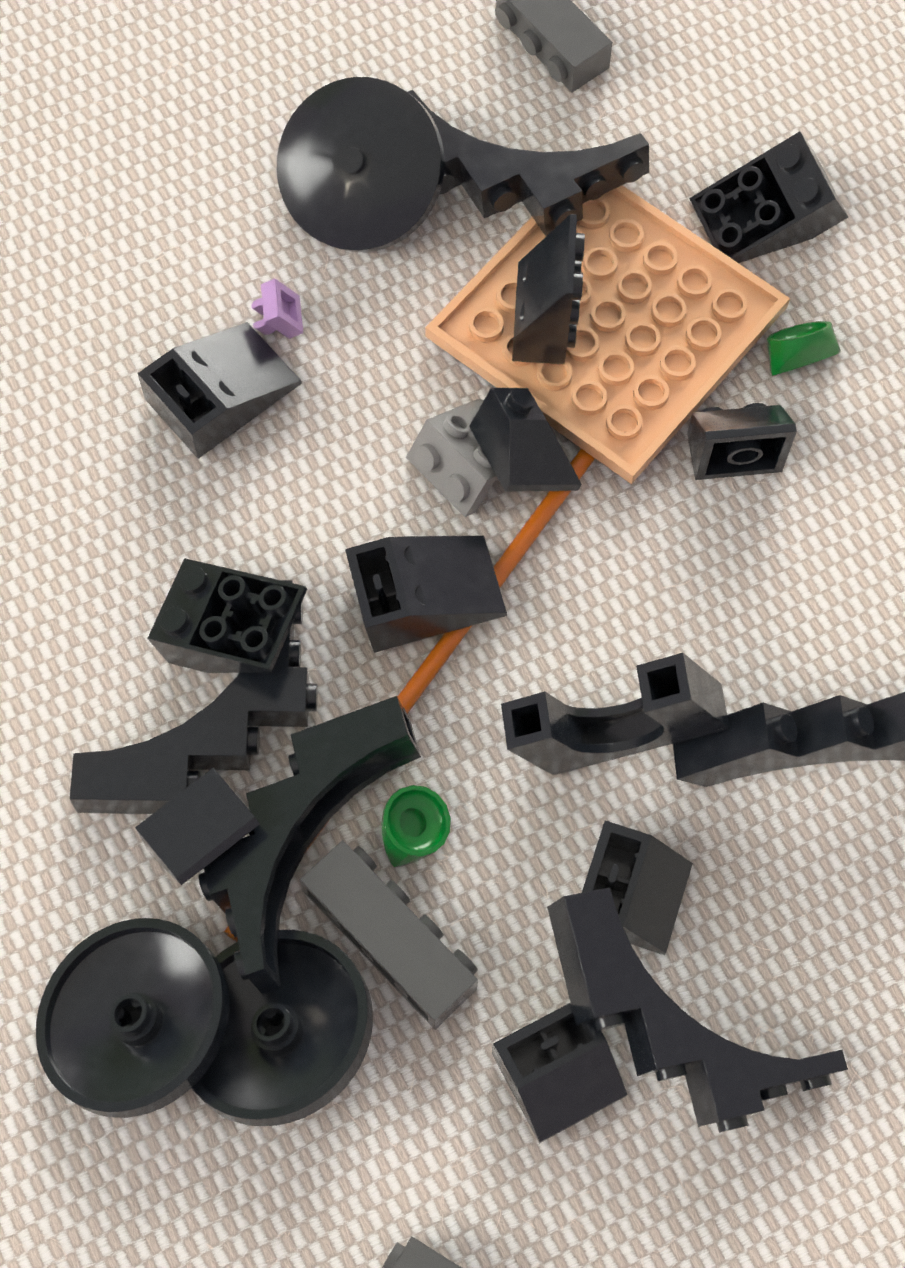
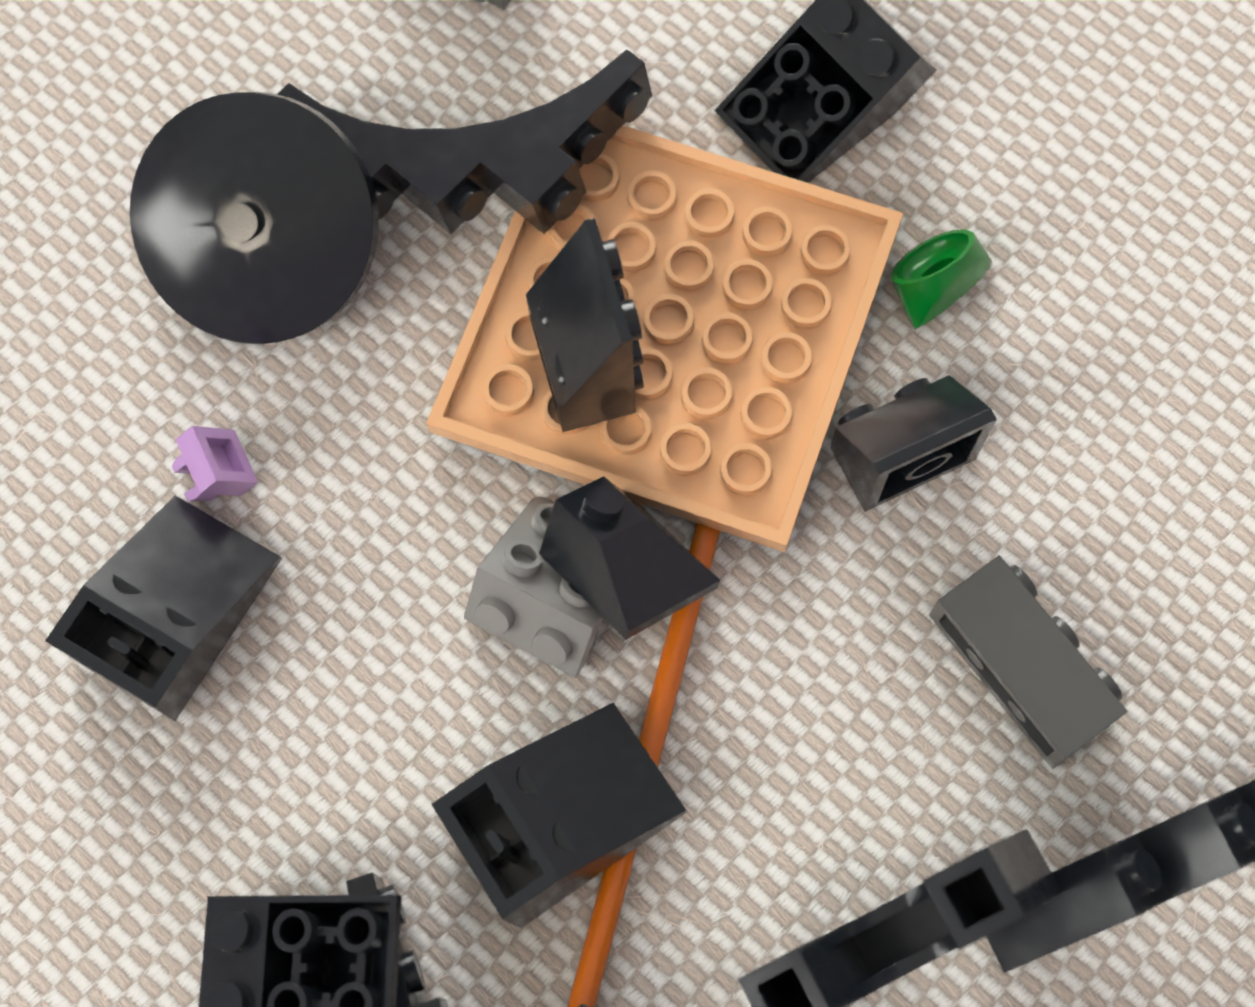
camera: 15 degrees left, 5 degrees up
(767, 601) = (1028, 660): none -> dark grey brick

